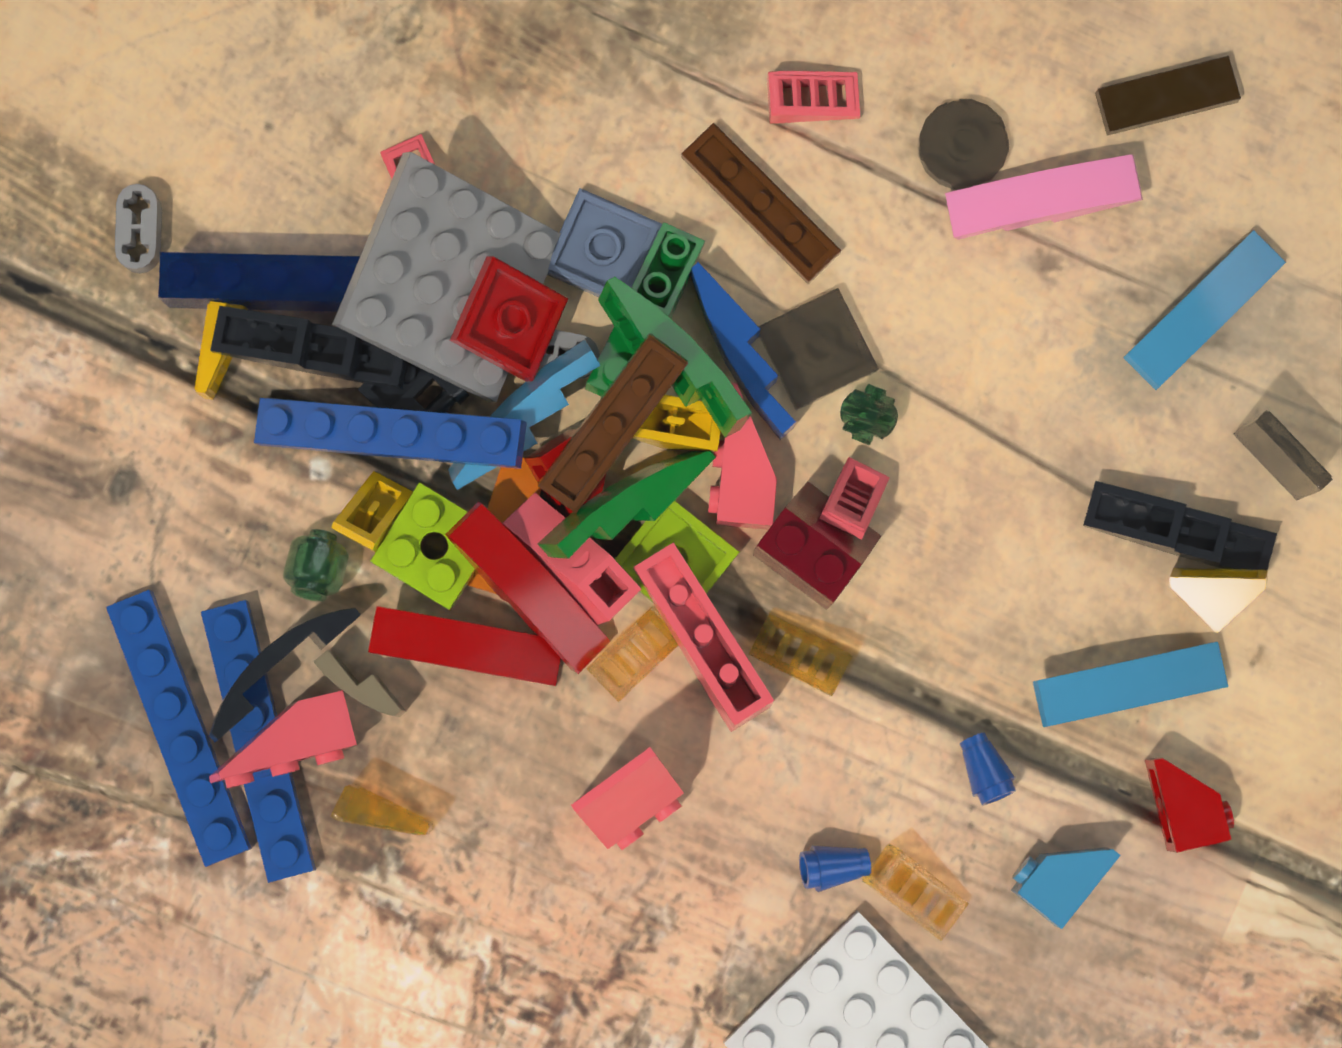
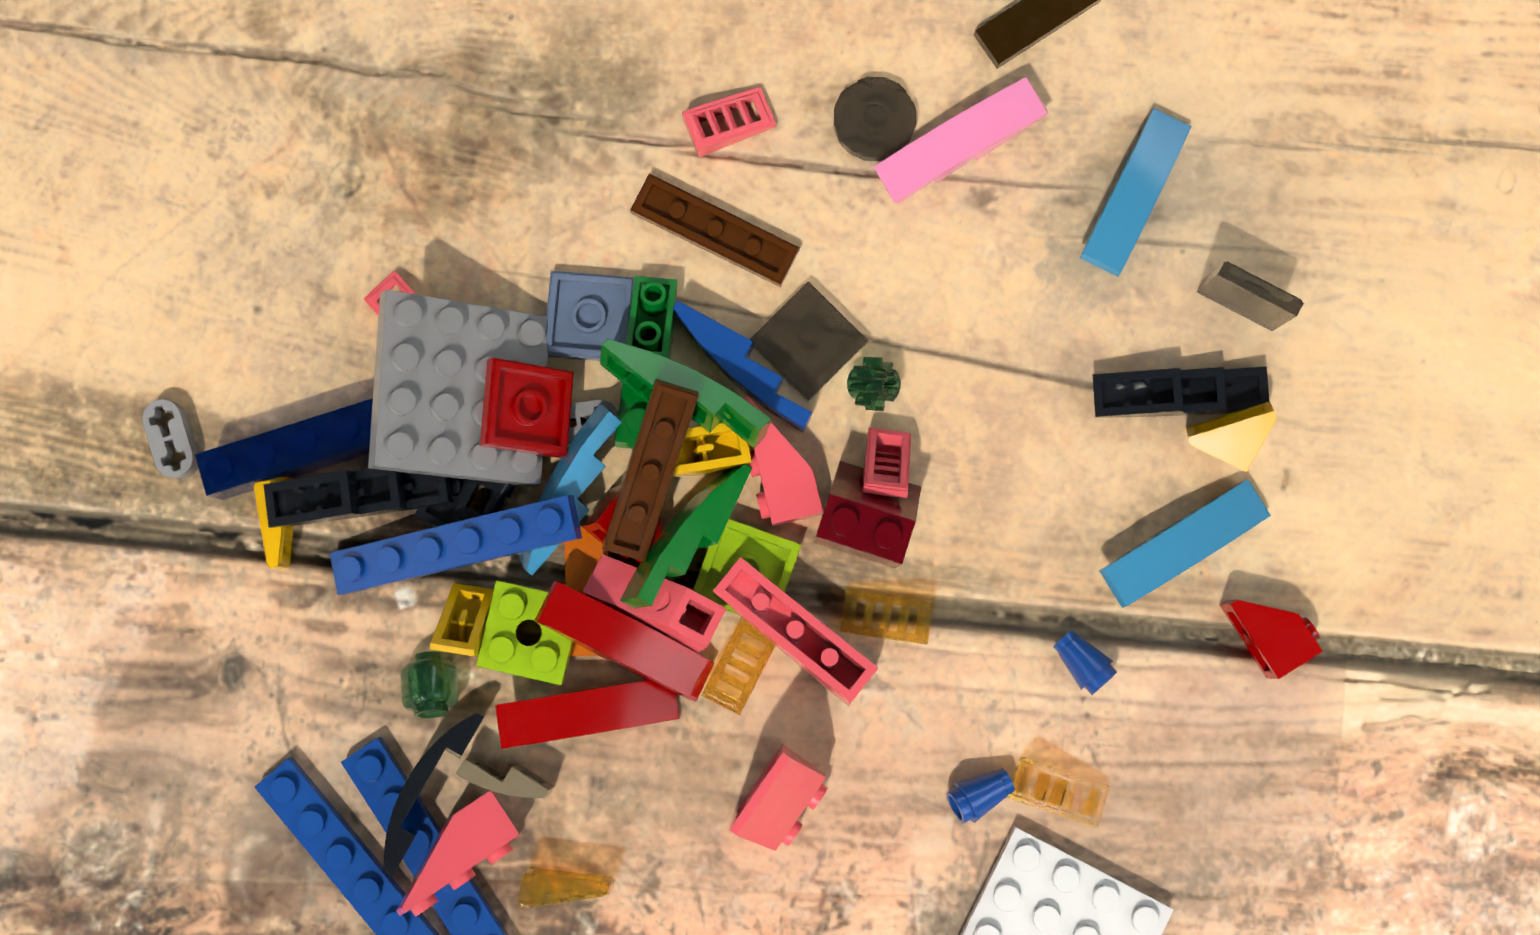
camera: 15 degrees left, 0 degrees up
(1061, 881) = (1186, 737): dark azure slope -> none

